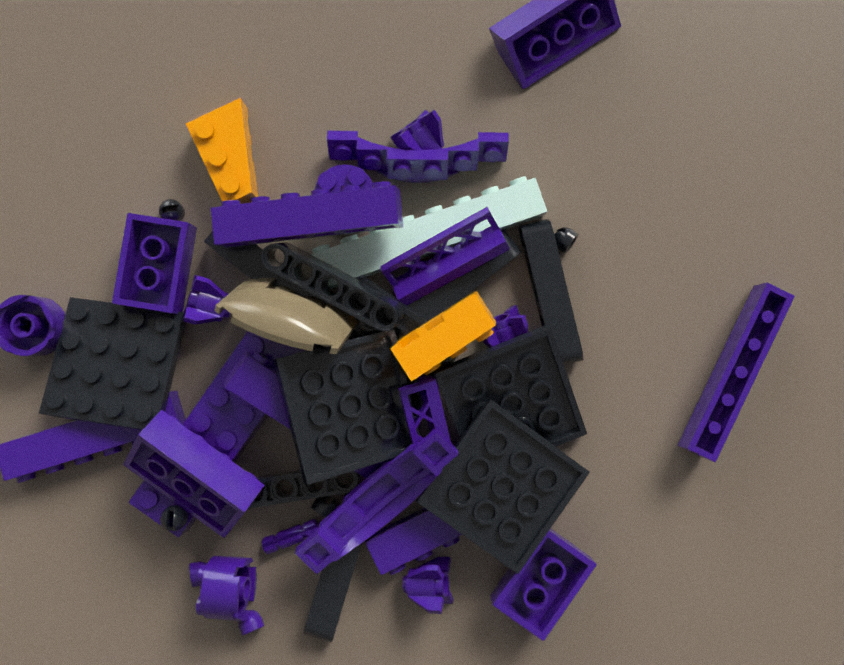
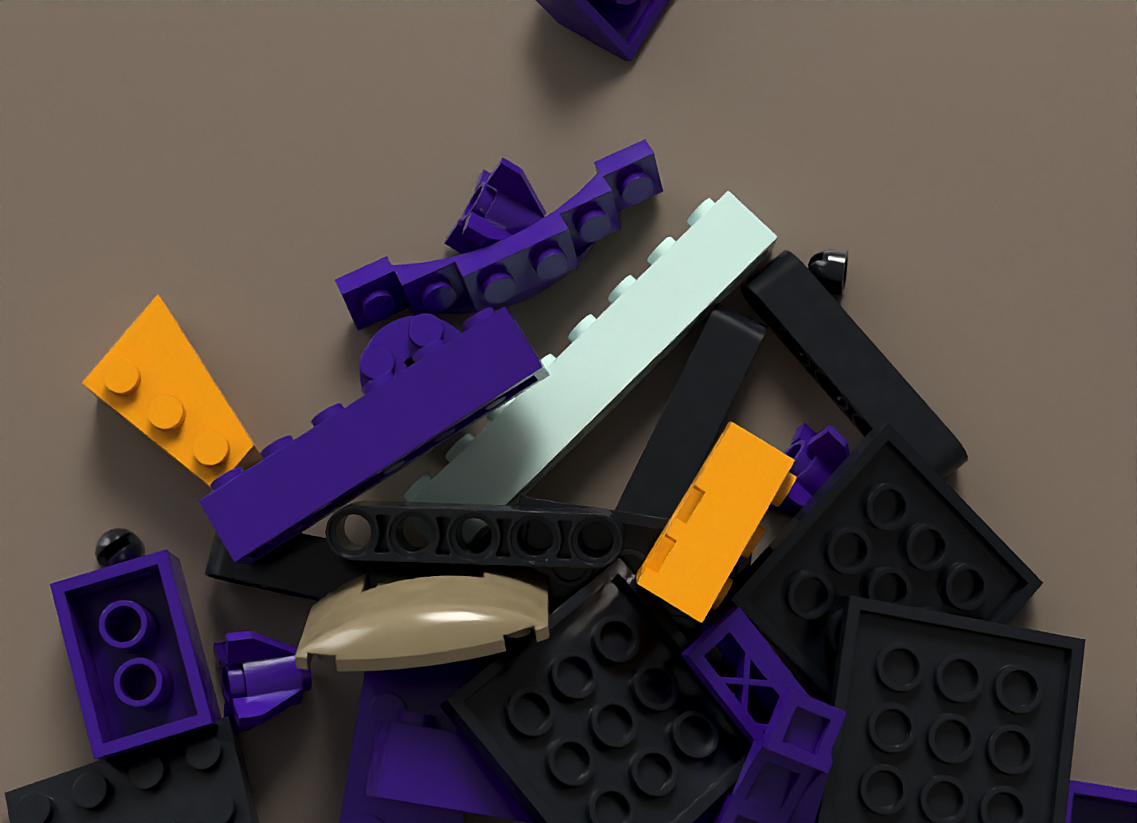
camera: 30 degrees left, 10 degrees down
(448, 261) = (651, 401): dark purple fence -> none

